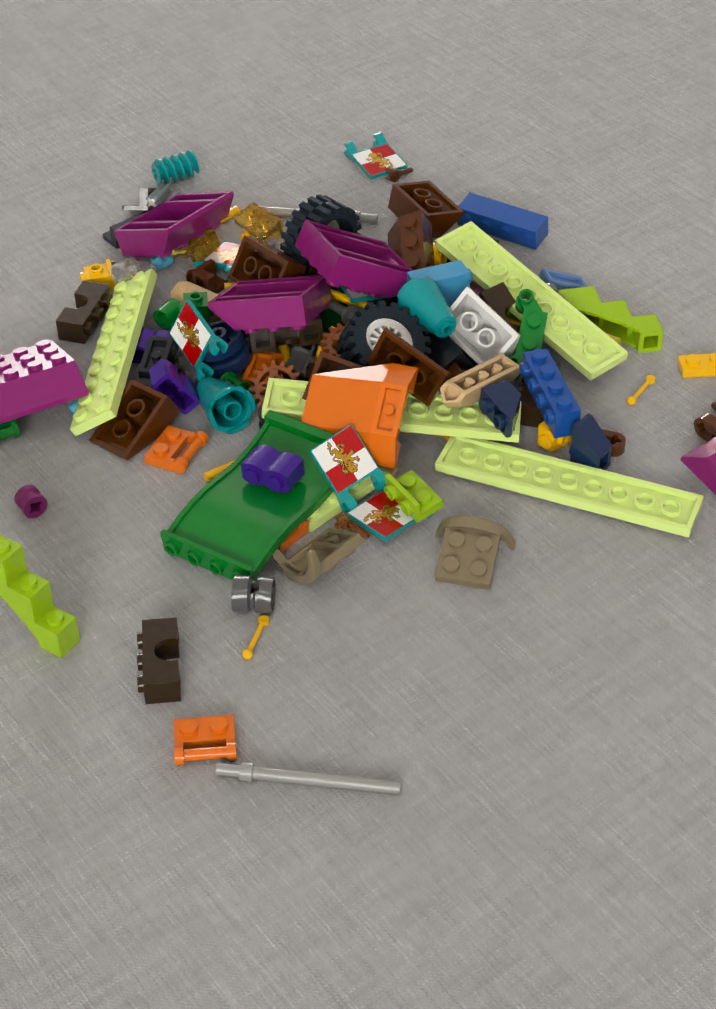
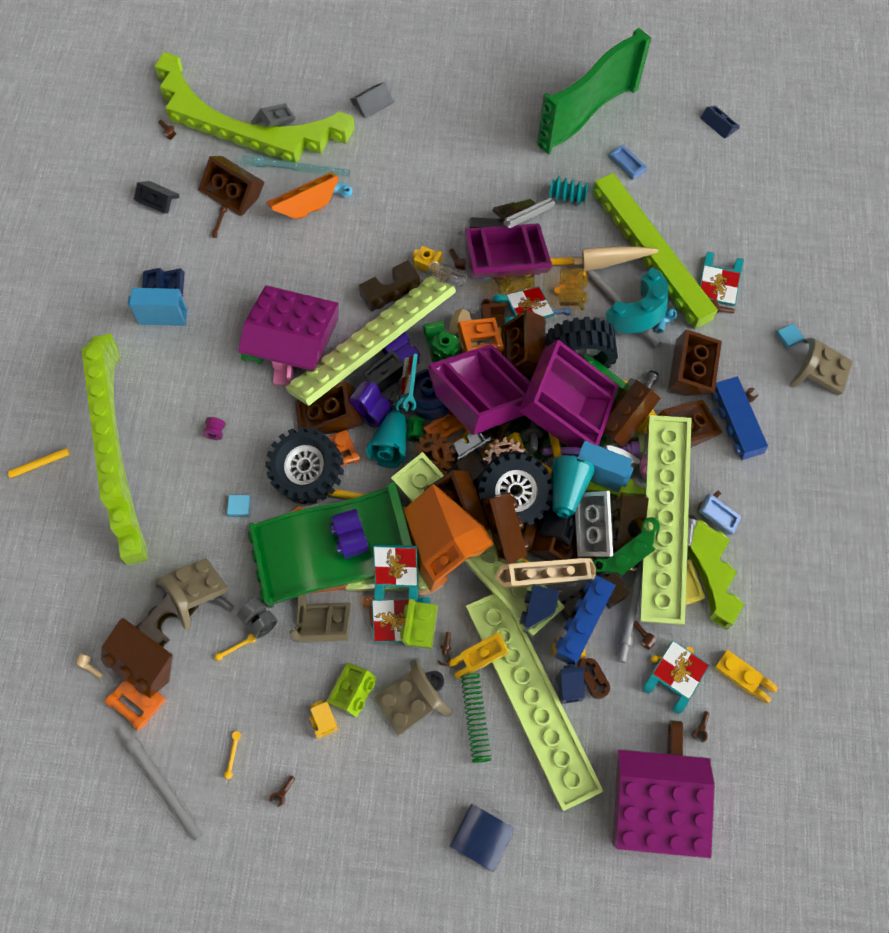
camera: 40 degrees right, 25 degrees up
(51, 424) = (282, 374): none -> bright pink panel
(111, 753) = (83, 662): none -> tan hand
(121, 89) = (611, 75): none -> green panel
(127, 540) = (238, 506): none -> medium azure tile
(162, 609) = (192, 587): none -> dark tan piece
(164, 460) = (285, 456): none -> black wheel
(171, 689) = (137, 658): none -> reddish brown slope
(186, 616) = (222, 602): none -> flat silver piece
(201, 131) = (627, 162): none -> medium blue tile
(214, 282) = (479, 330): none -> orange plate
(248, 71) = (719, 121): none -> dark blue slope
(263, 185) = (608, 256): none -> tan piece
(296, 166) = (640, 232): none -> lime brick
(338, 184) = (646, 313): none -> teal brick
(340, 695) = (236, 736): none -> yellow hinge
(361, 200) = (670, 316): none -> medium azure arm
(406, 583) = (352, 689): none -> lime bracket
(409, 618) = (322, 719): none -> yellow brick
(437, 699) = (283, 791): none -> reddish brown hand
(452, 505) = (445, 647): none -> reddish brown hand
(475, 158) = (790, 336): none -> medium azure tile
(491, 480) = (480, 655): none -> yellow hinge
(525, 157) = (824, 367): none -> dark tan piece
(575, 549) = (477, 758): none -> green piece
(593, 401) = (625, 639): none -> light grey bar
(611, 391) = (648, 640): none -> reddish brown hand
(649, 596) = (482, 837): none -> dark blue slope
(662, 392) = (679, 672): none -> flag

